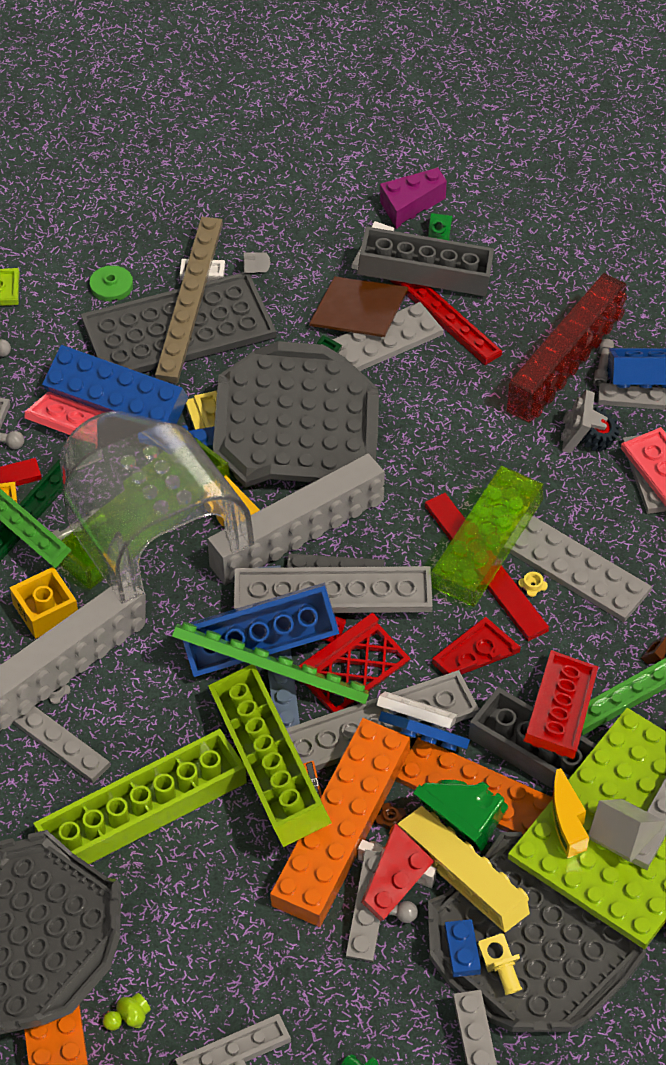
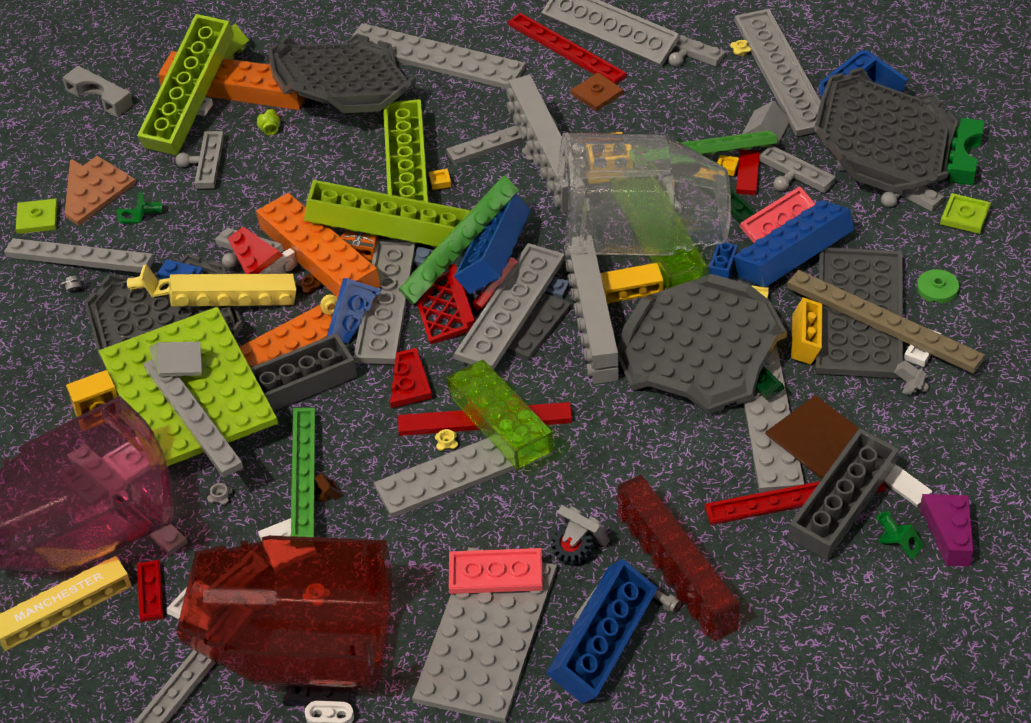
camera: 120 degrees right, 5 degrees down
(147, 756) = (439, 179): none -> yellow plate
(232, 346) = (806, 331): none -> yellow brick
(416, 711) = (371, 313): white plate -> none
(425, 758) = (326, 301): none -> light yellow plate
(464, 807) = (274, 302): green piece -> none
(561, 704) = (312, 388): red plate -> none
(568, 816) = (212, 334): yellow slope -> none

